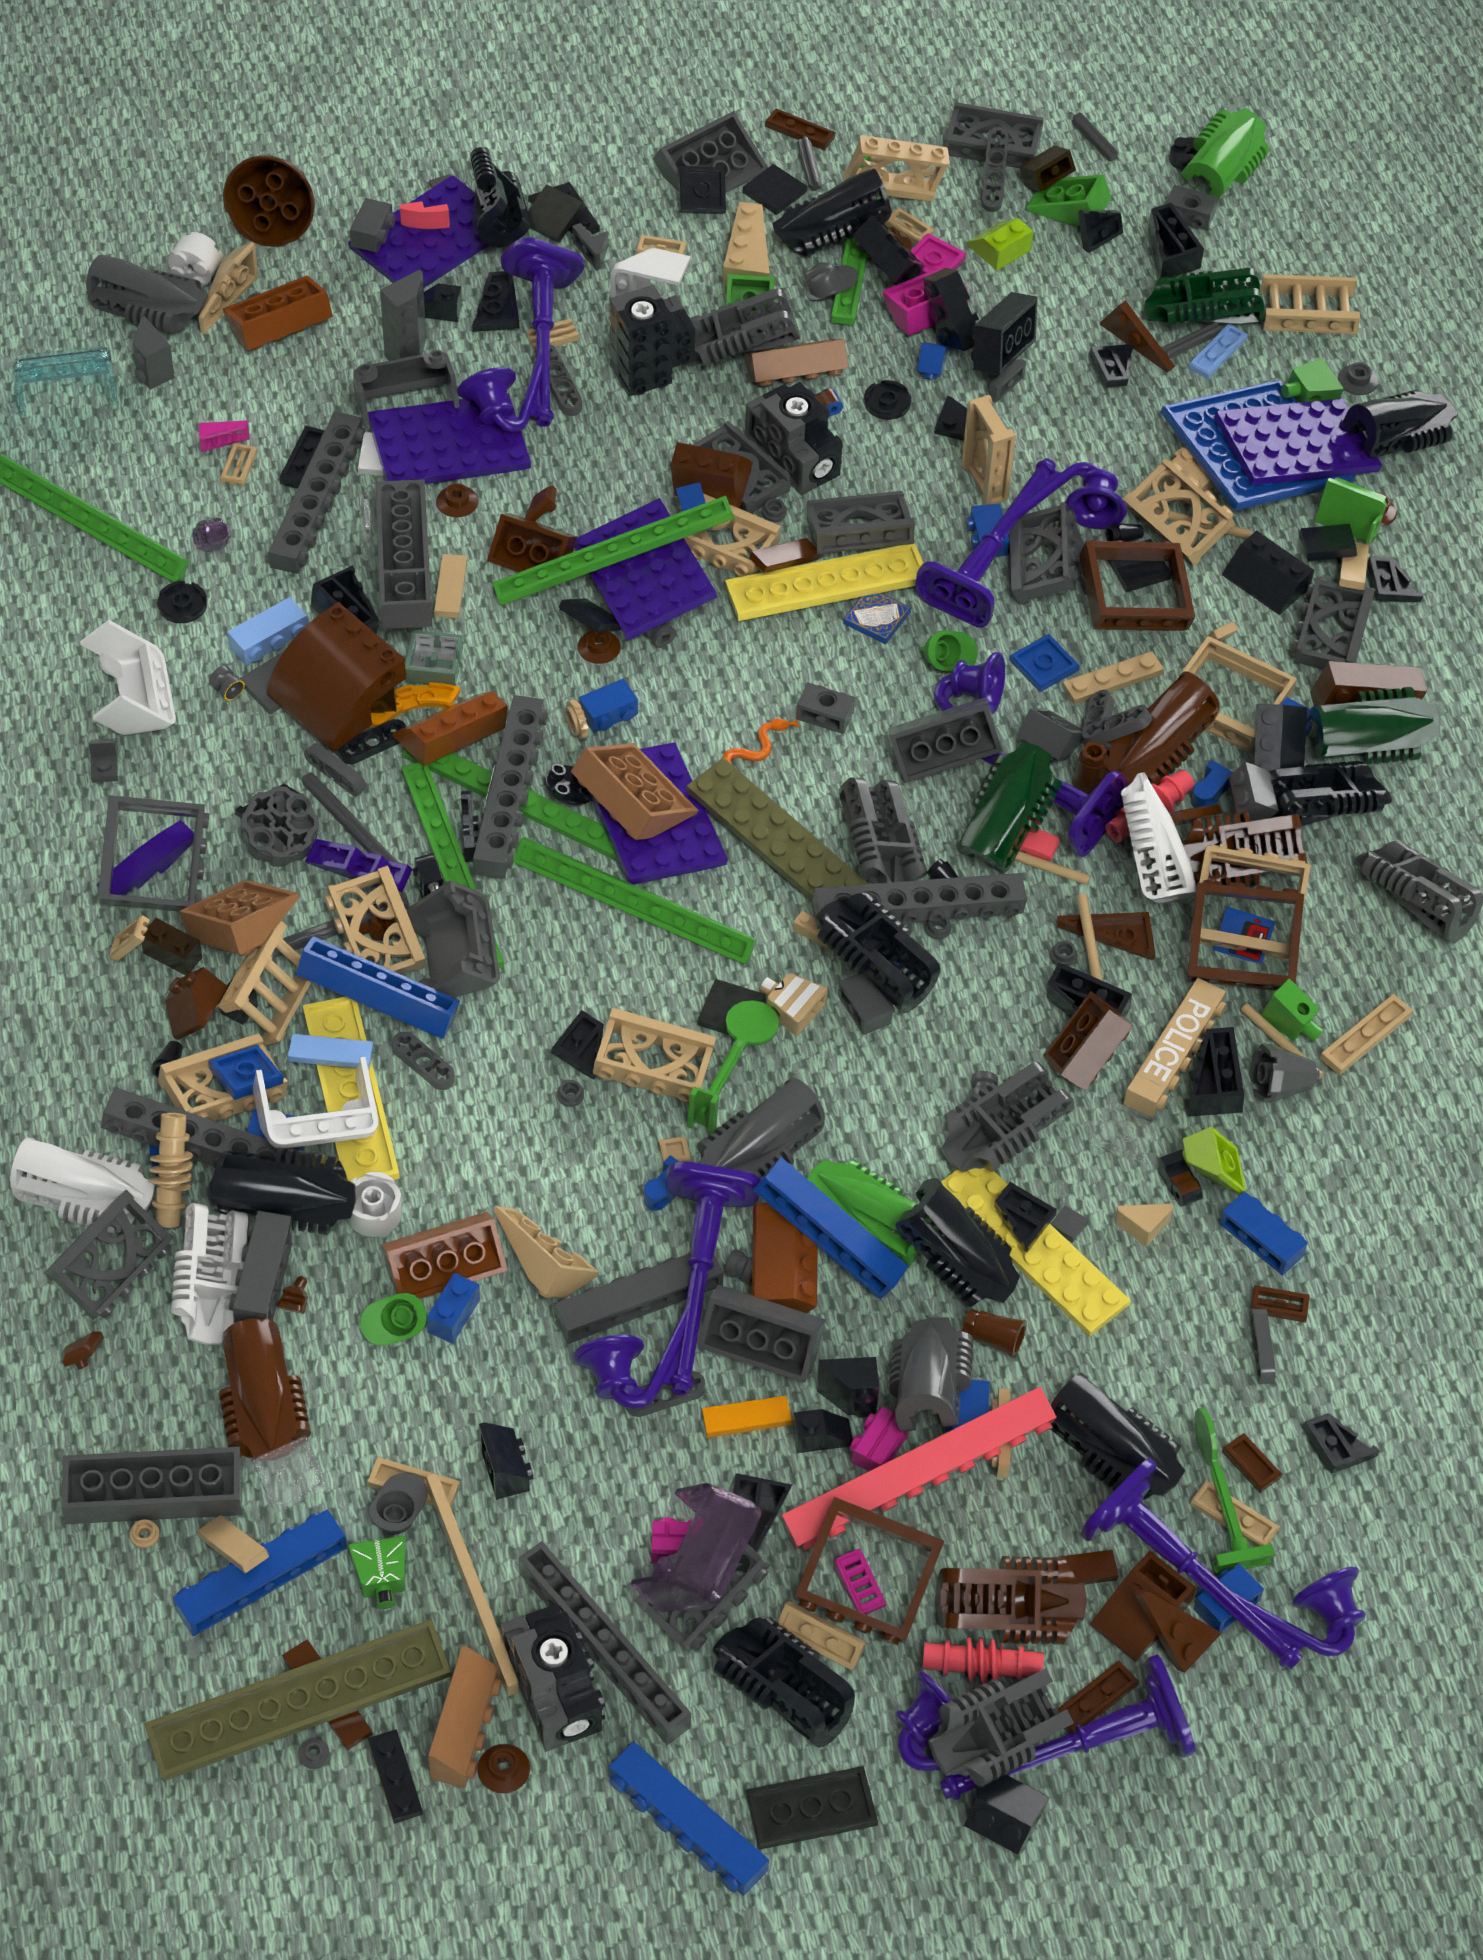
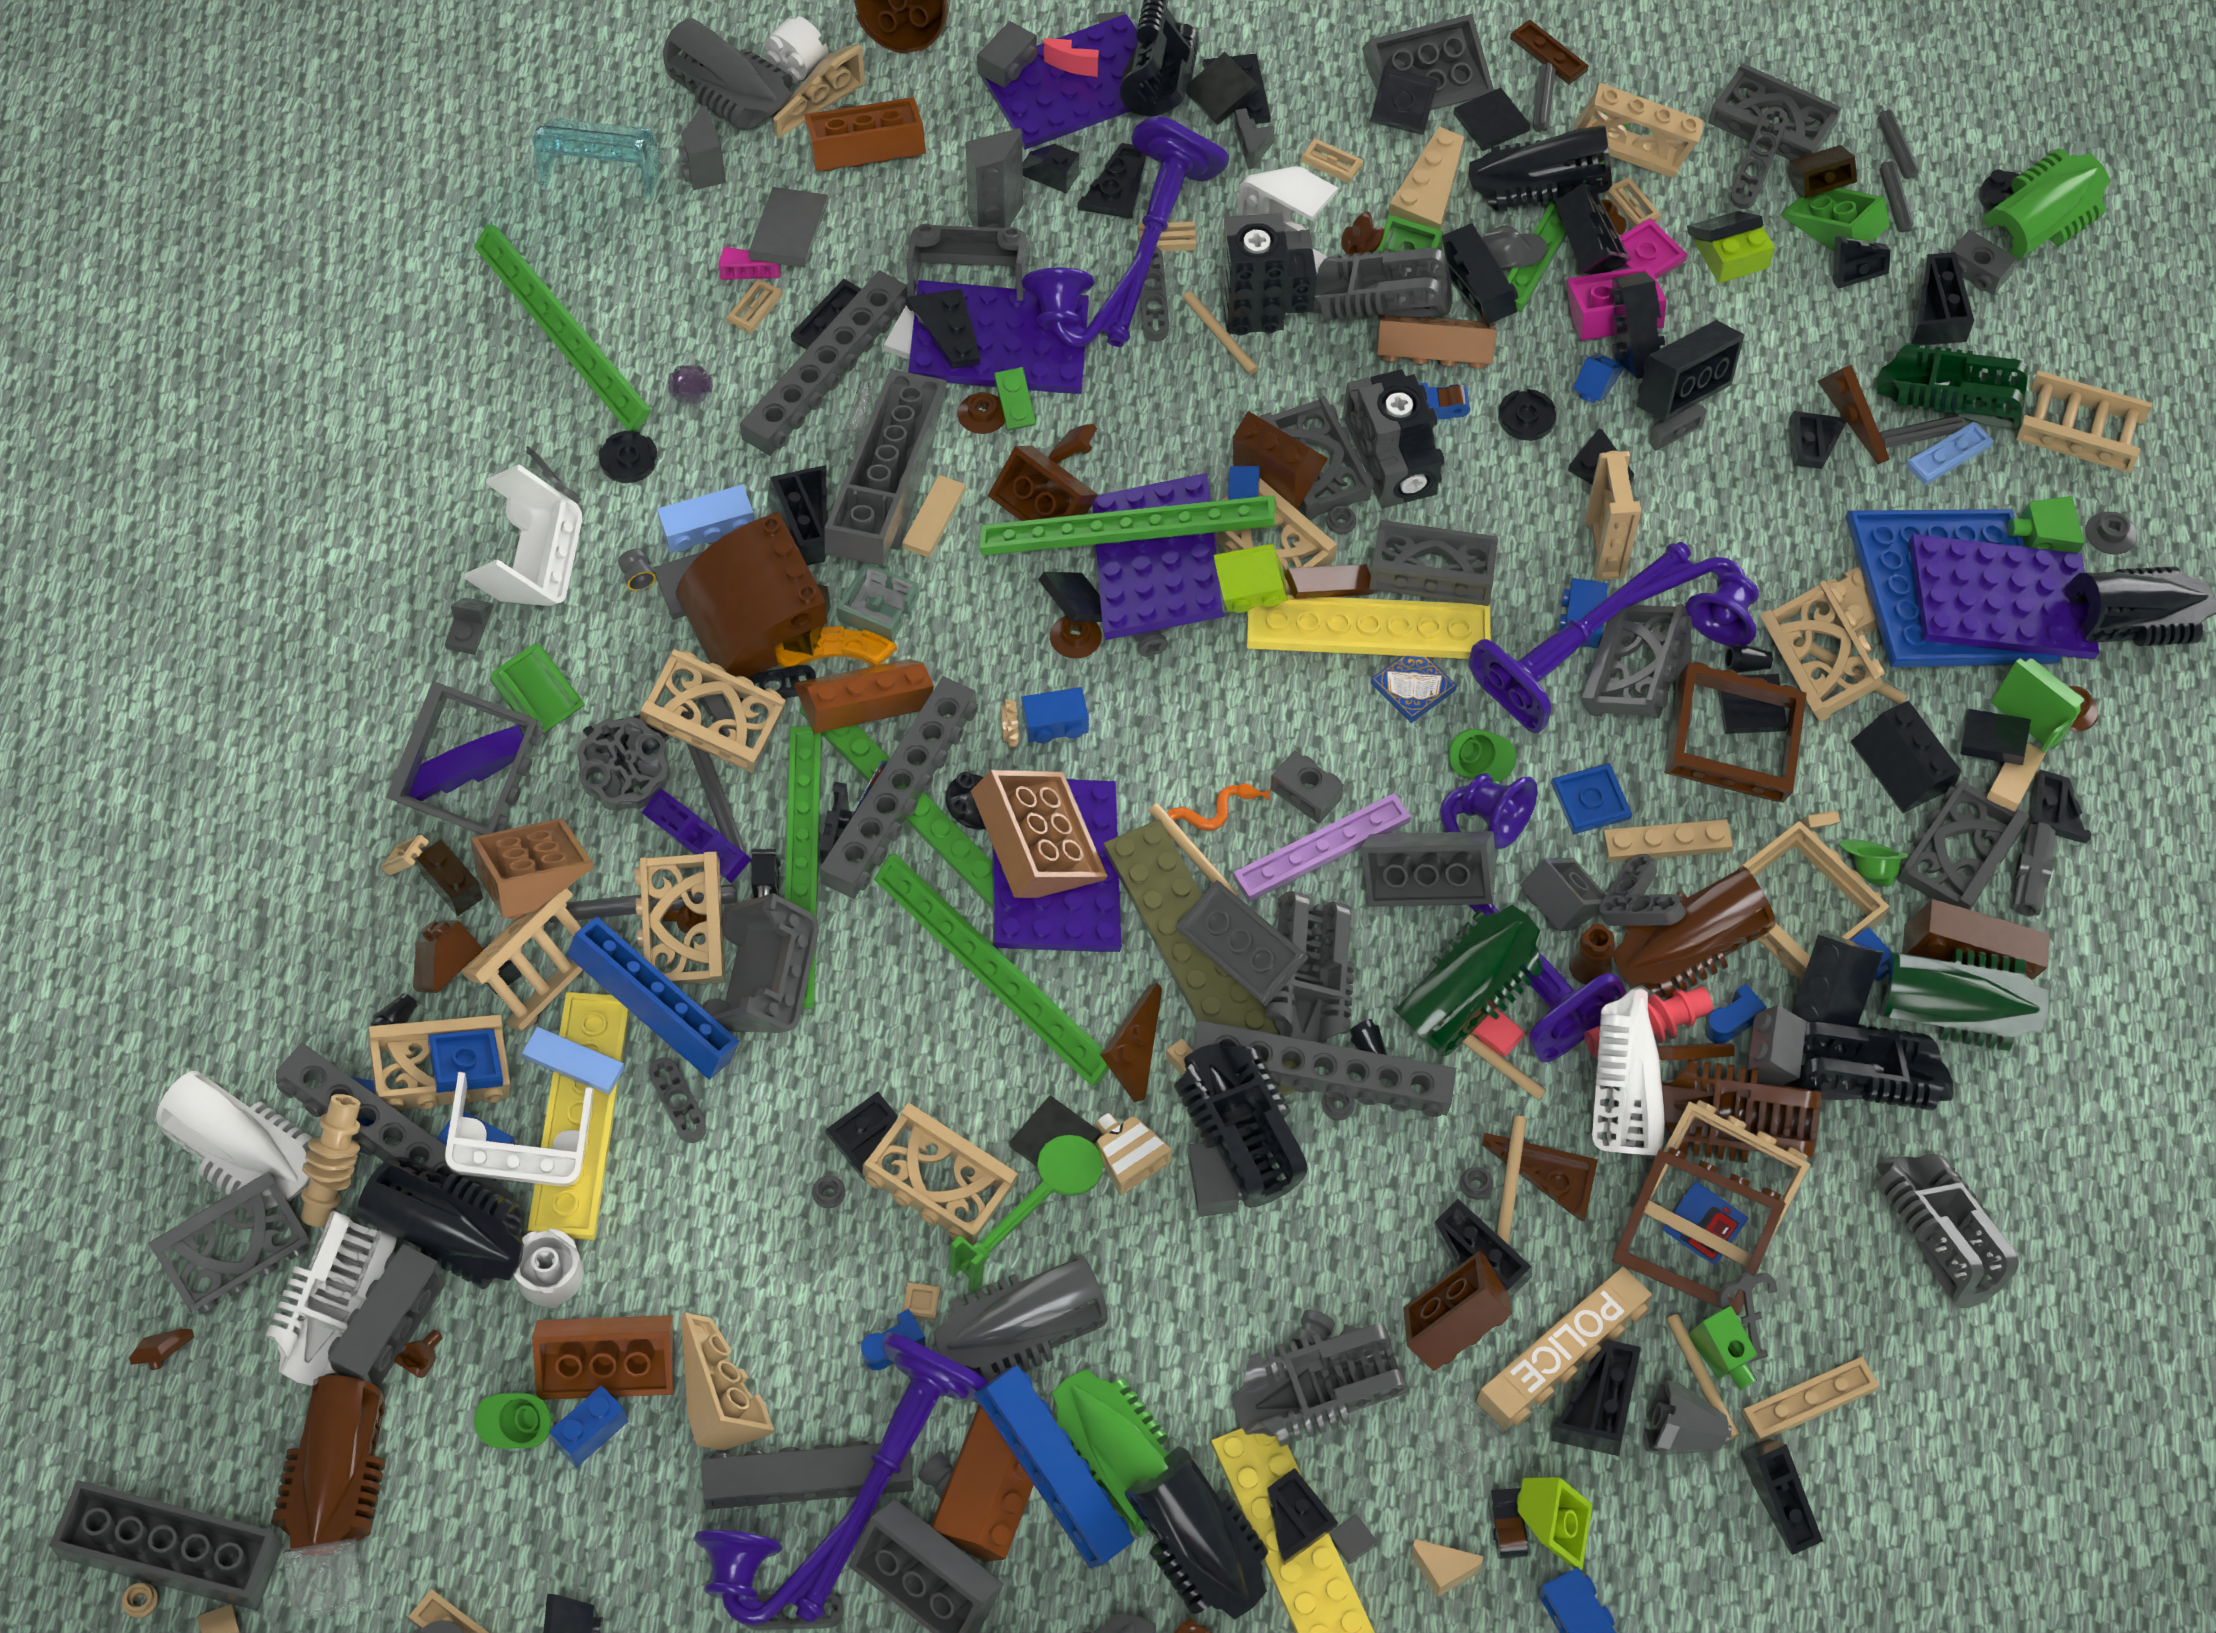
camera: 20 degrees right, 5 degrees up
(130, 627) = (553, 477): none -> dark grey piece
(183, 782) = (536, 687): none -> bright green piece
(245, 397) = (788, 227): none -> dark grey tile
(354, 750) = (731, 748): none -> tan fence
(409, 438) = (948, 324): none -> black wing
(481, 482) = (1014, 399): none -> bright green plate
(623, 396) = (1219, 331): none -> tan bar
(709, 297) = (1361, 235): none -> reddish brown plate
(728, 563) = (1251, 578): none -> lime slope
(759, 779) = (1189, 847): none -> tan bar
(765, 925) = (1132, 1045): none -> reddish brown wing
(814, 303) = (1478, 275): none -> black wedge
(825, 825) = (1241, 942): none -> dark grey tile
(852, 749) = (1320, 847): none -> lavender plate
(988, 225) = (1725, 226): none -> black tile
(1111, 178) = (1896, 196): none -> dark grey axle
(1274, 653) = (1874, 861): none -> bright green piece
(1294, 959) = (1746, 1283): none -> dark grey piece
(1370, 1102) = (1782, 1494): none -> black slope
(1390, 628) = (2034, 869): none -> dark grey piece

